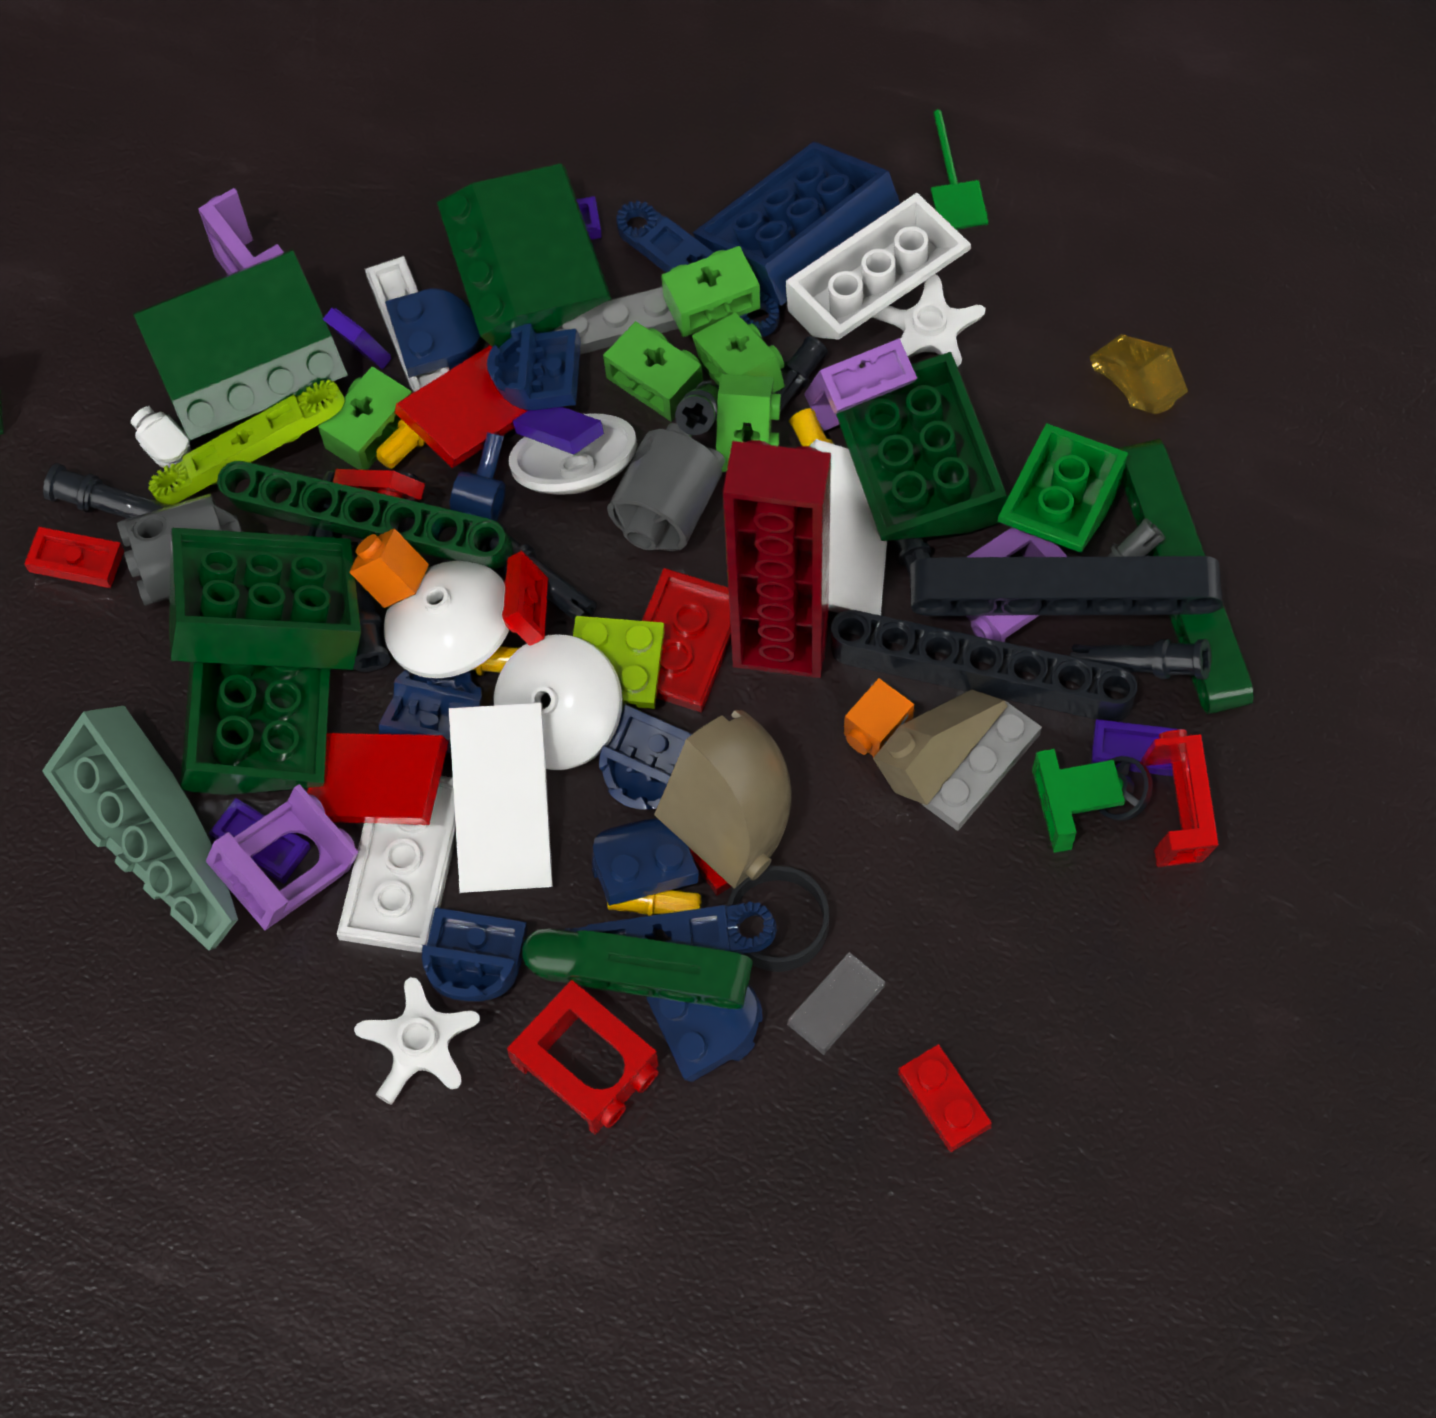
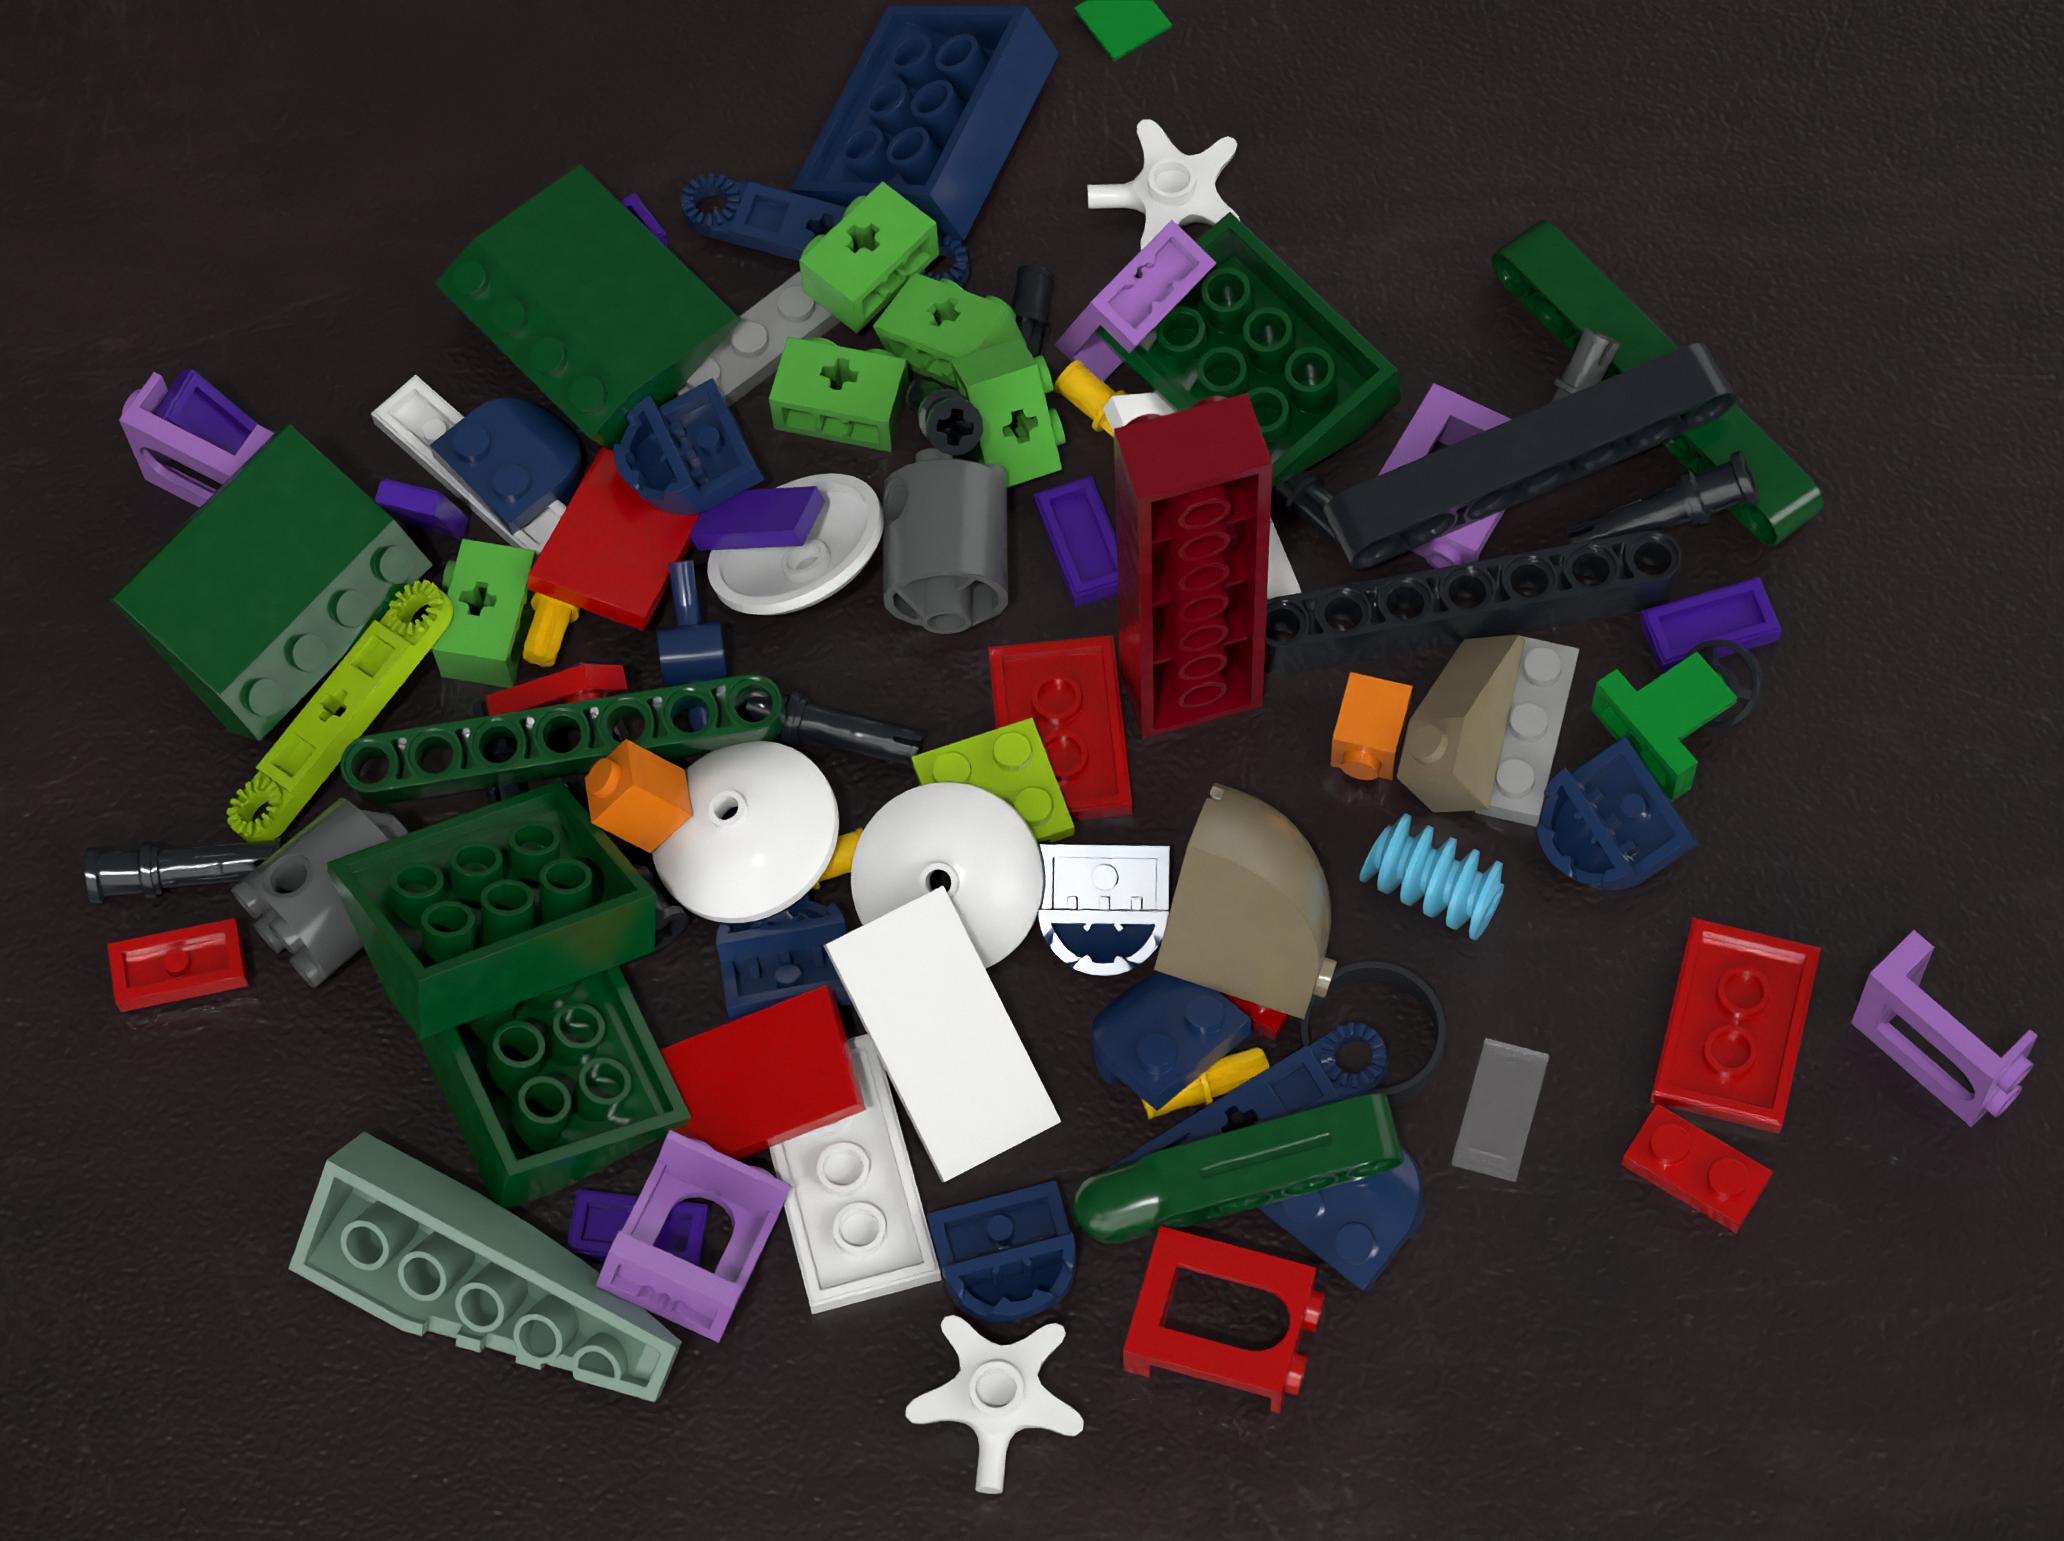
camera: 25 degrees left, 0 degrees up
(160, 436) = (211, 754): white arm -> none
(257, 227) = (205, 412): none -> dark purple tile
(525, 598) = (843, 760): red plate -> none
(868, 834) = (1435, 875): none -> medium azure piece
(873, 269) = (1068, 146): white slope -> none
(1004, 847) = (1611, 821): none -> dark blue slope
(1019, 1016) = (1735, 1025): none -> red tile
(1065, 488) = (1462, 330): green slope -> none
(1122, 1051) = (1895, 990): none -> medium lavender panel
(1142, 371) = (1474, 140): clear yellow arch -> none
(1193, 796) = (1839, 715): red panel -> none

